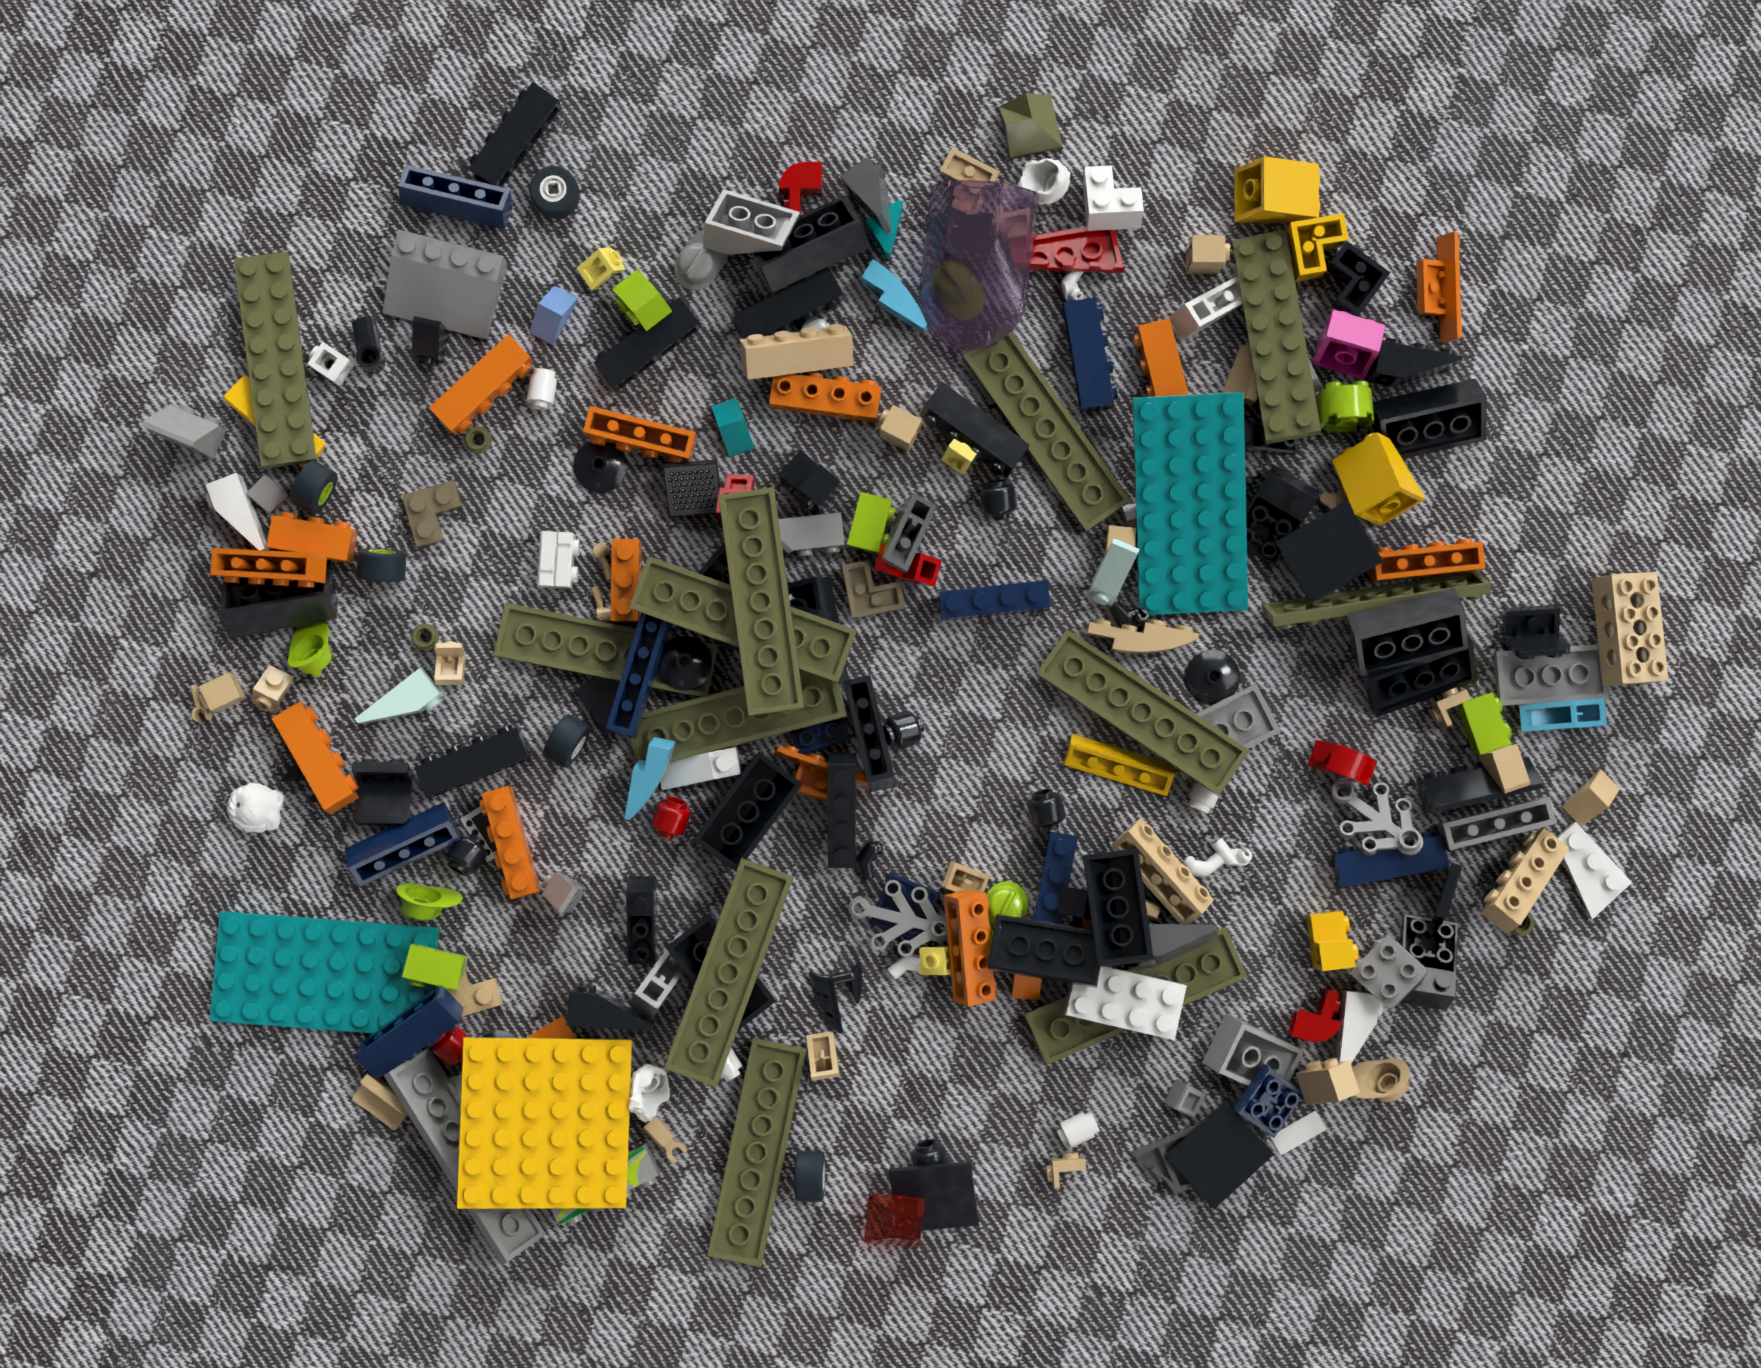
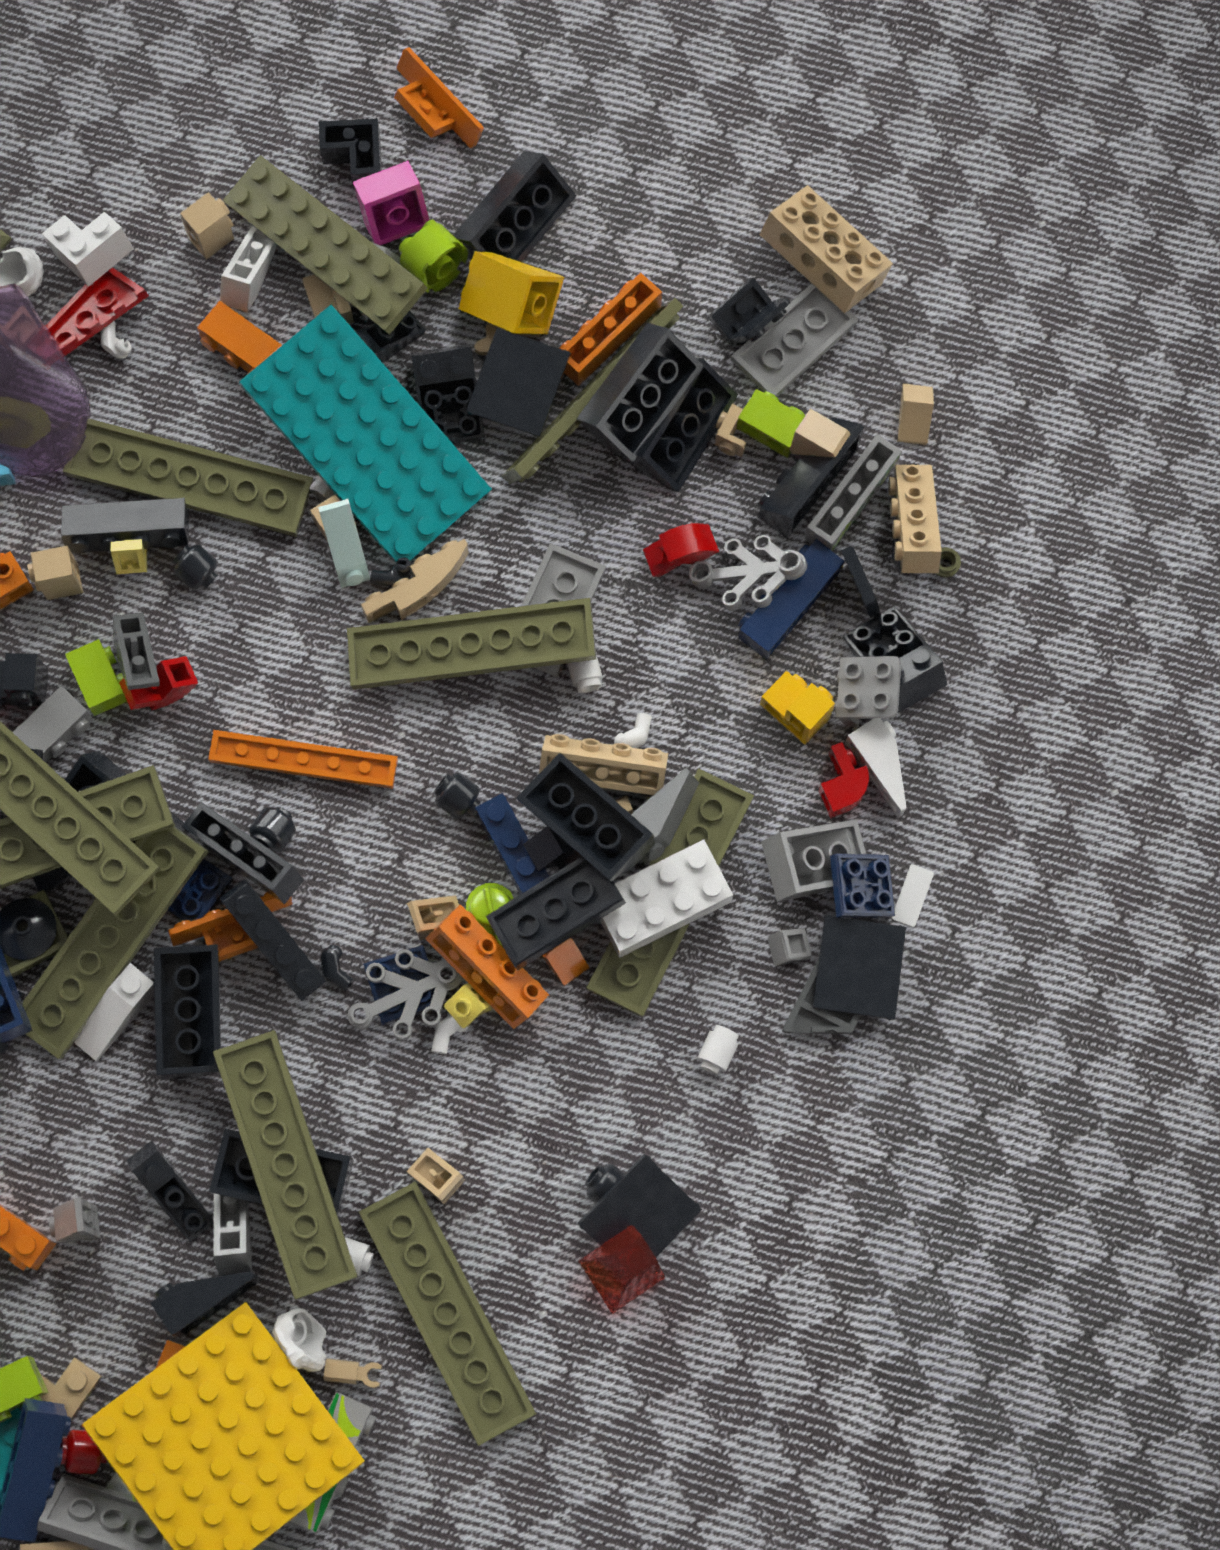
camera: 40 degrees left, 10 degrees down
(648, 774) = (70, 1053): medium azure slope -> none
(671, 817) = (122, 1076): red head -> none
(809, 1176) = (512, 1292): black wheel -> none
(826, 985) = (388, 1111): black piece -> none
(869, 599) = (147, 743): dark tan plate -> none
(963, 697) = (303, 759): none -> orange plate
(994, 600) = (262, 655): dark blue brick -> none
(1068, 1162) = (734, 1084): tan bracket -> none
(1088, 354) = (175, 387): dark blue brick -> none
(1119, 765) = (490, 708): yellow slope -> none
(1199, 679) = (506, 583): black dish -> none
(1232, 857) = (655, 705): white arm -> none
(1276, 191) = (226, 131): yellow slope -> none
(1309, 239) = (289, 147): yellow brick -> none
(1327, 1081) = (897, 824): tan brick -> none
(1382, 1079) = (943, 787): tan piece -> none
(1406, 363) = (457, 179): black slope -> none
(1563, 715) = (833, 363): medium azure slope -> none
(1593, 872) = (970, 471): white wing -> none

